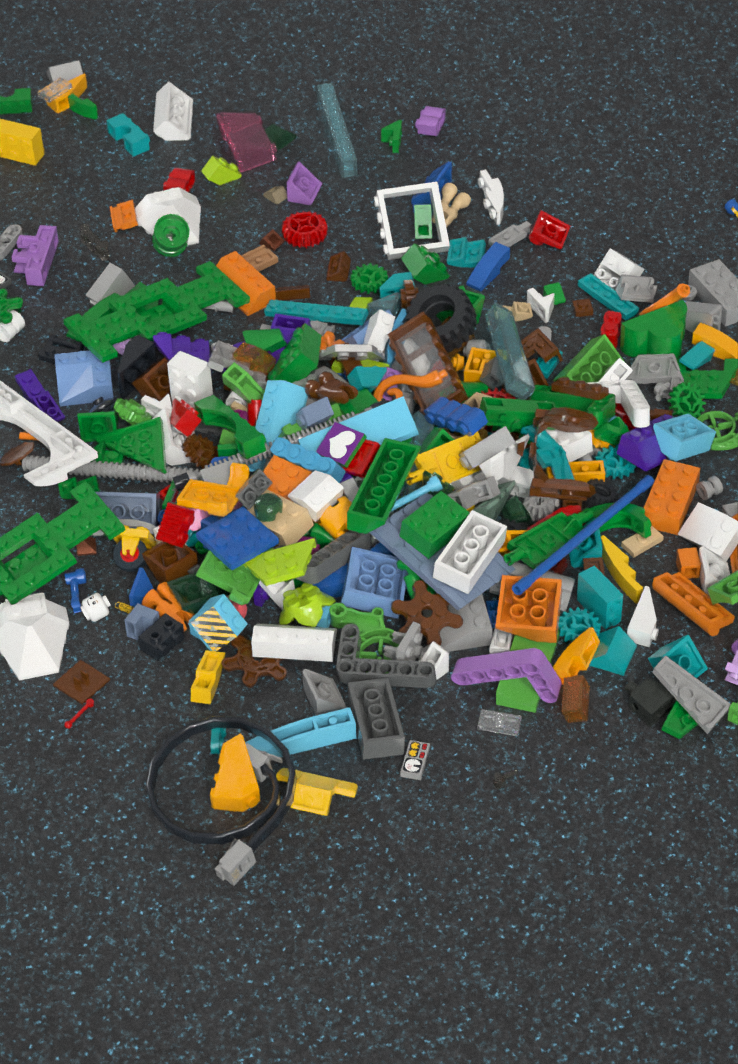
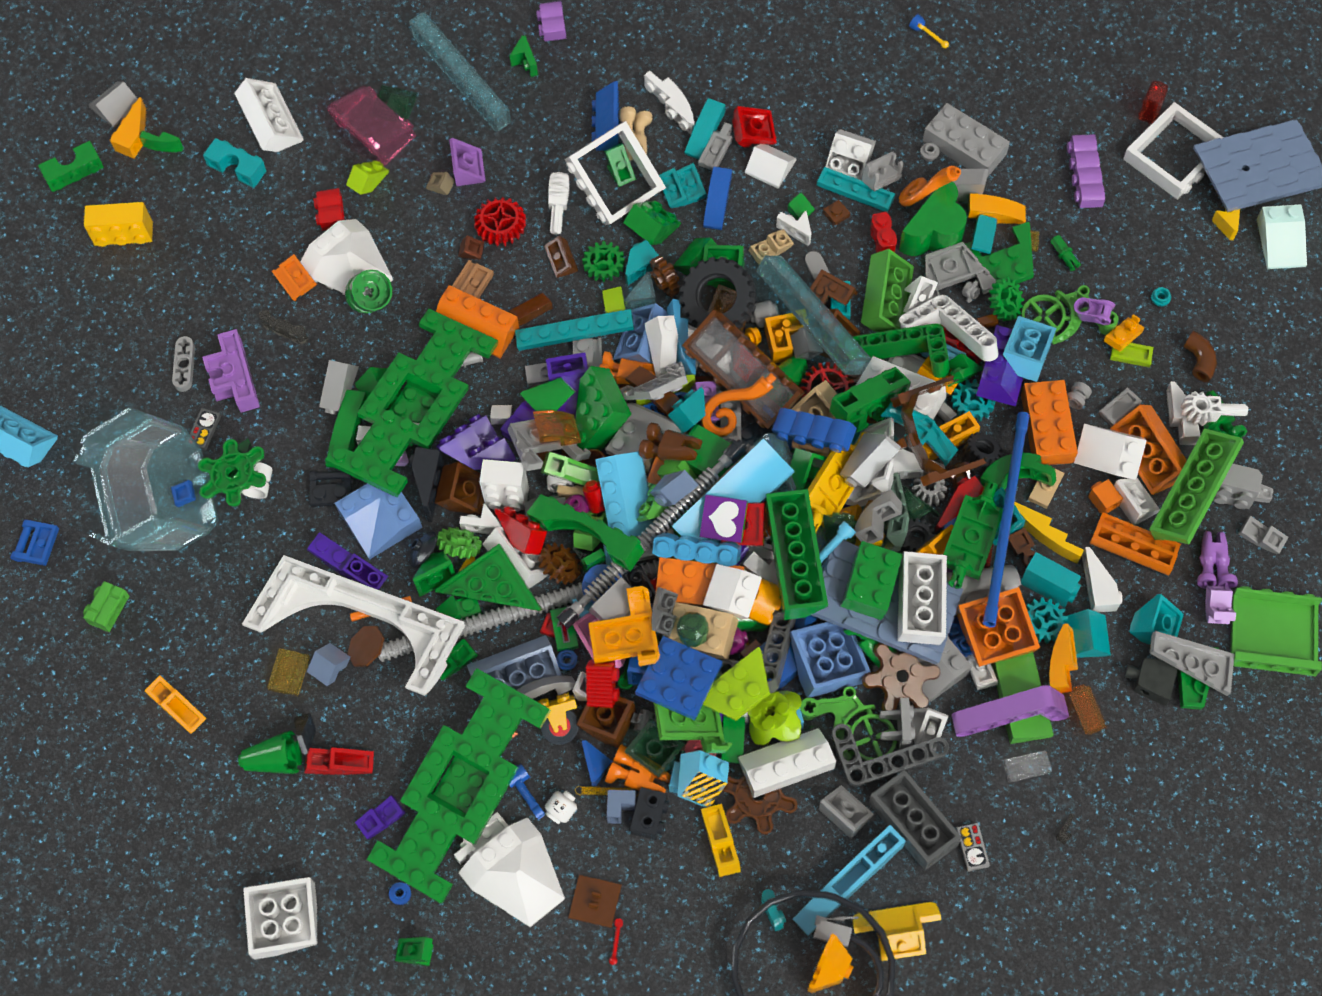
camera: 25 degrees left, 20 degrees up
(54, 89) = (121, 135): clear plate -> none
(263, 610) = (733, 732): none -> green slope
(359, 227) = (558, 200): none -> white gear
(514, 214) = (705, 126): none -> teal slope
(546, 260) = (769, 165): none -> white slope
(580, 388) = (903, 331): reddish brown plate -> none

